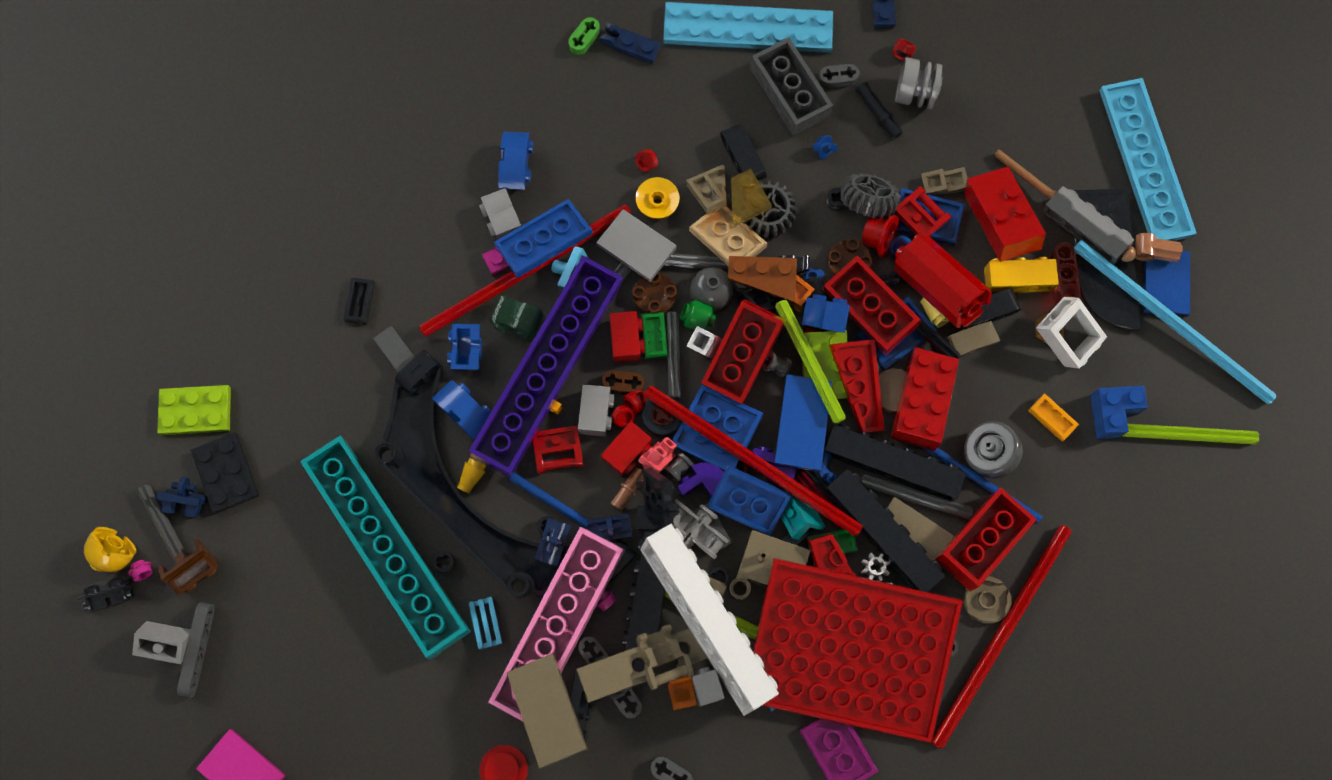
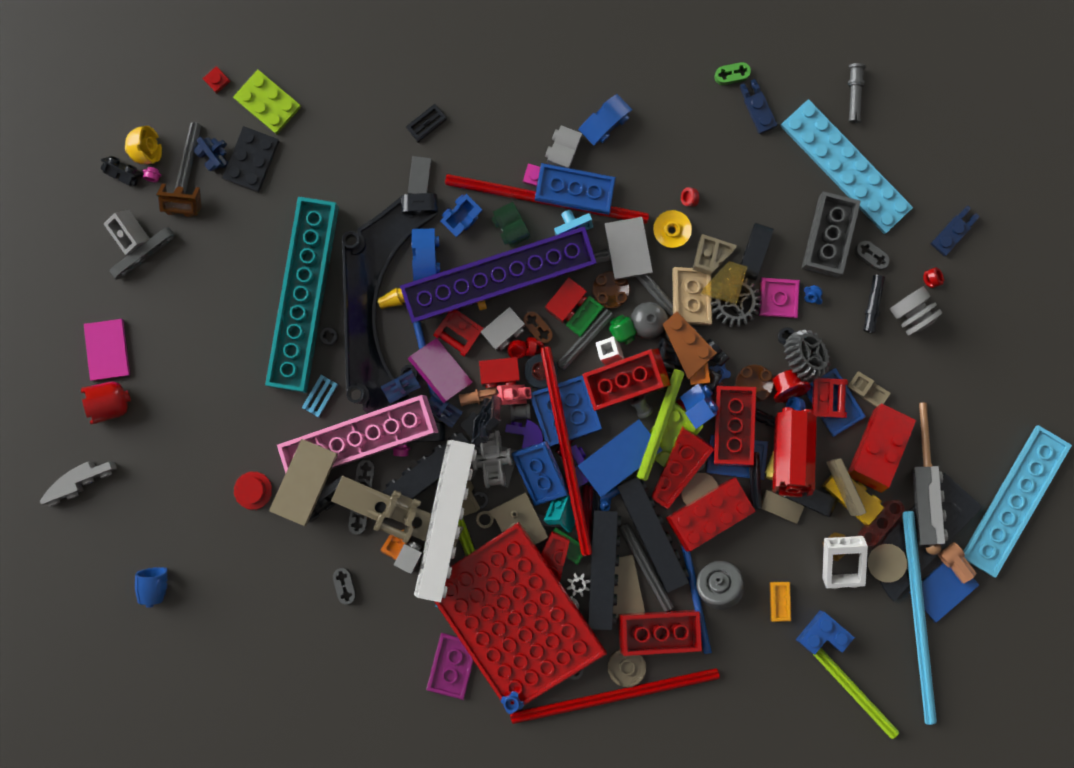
camera: 45 degrees right, 10 degrees up
(127, 432) = (216, 79): none -> red plate
(573, 496) = (440, 370): none -> magenta tile
(799, 174) = (779, 298): none -> dark pink tile
(929, 733) = (511, 708): none -> blue plate
(1012, 266) = (846, 487): none -> dark tan tile
(1105, 301) = (887, 563): none -> dark tan tile

